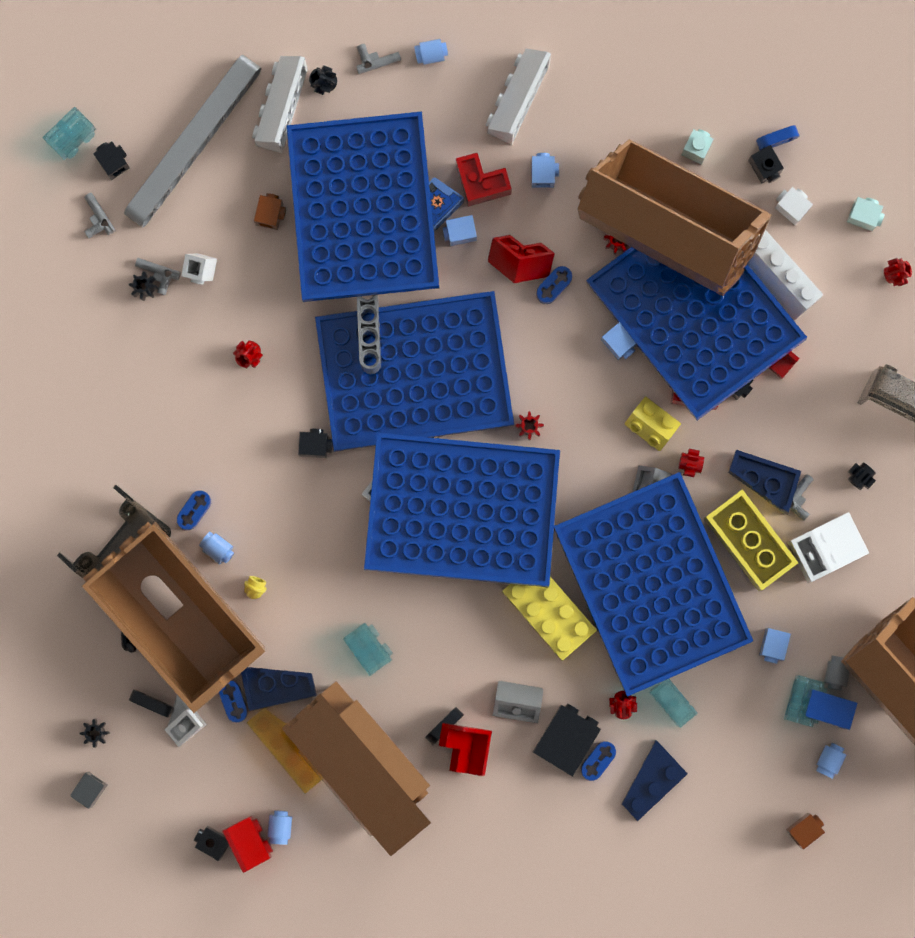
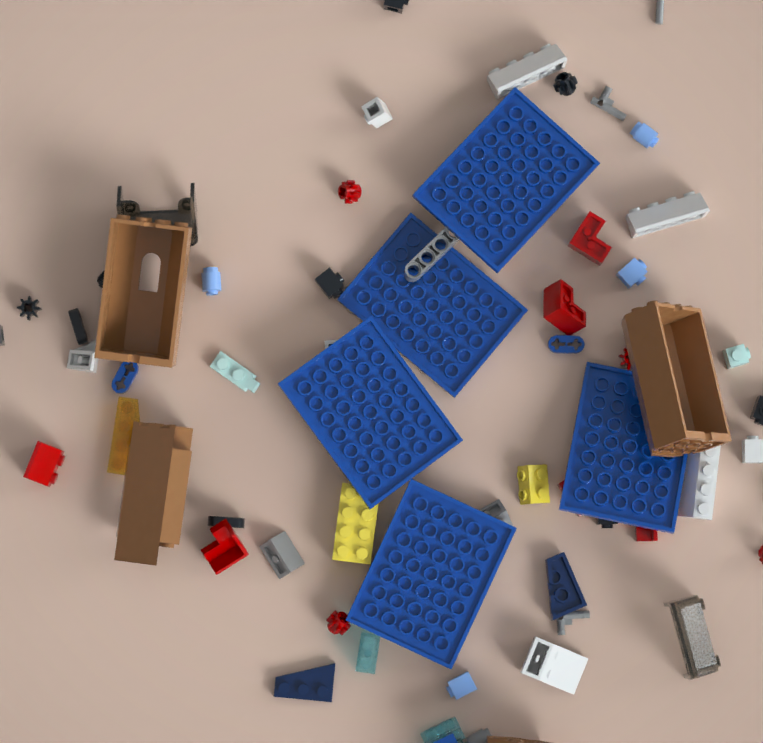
camera: 45 degrees right, 0 degrees up
(98, 218) = (351, 22): light grey hose -> none
(150, 287) = (338, 91): black gear -> none
(159, 274) = (351, 91): light grey hose -> none
(189, 507) = (221, 241): blue beam -> none
(192, 141) = (453, 37): light grey beam -> none
(219, 847) = (28, 448): black brick -> none
(255, 587) = (207, 326): light yellow plate -> none
(269, 211) = (452, 125): dark orange brick -> none
(275, 687) = (156, 394): dark blue wing -> none
(279, 827) = (71, 475): light blue brick -> none
(318, 599) = (235, 372): none -> light aqua hinge
(368, 648) = (232, 431): clear light blue brick -> none
(443, 202) = (555, 227): torso -> none
(460, 230) = (547, 254): light blue brick -> none
(529, 432) = (466, 404): red gear -> none
(567, 739) = (285, 606): black brick -> none
(603, 764) = (289, 633): blue beam -> none
(619, 342) = (566, 417): light blue brick -> none
(691, 462) = (530, 530): red gear -> none
(750, 540) = (514, 611): light yellow brick -> none
(861, 476) = (618, 646): black gear -> none

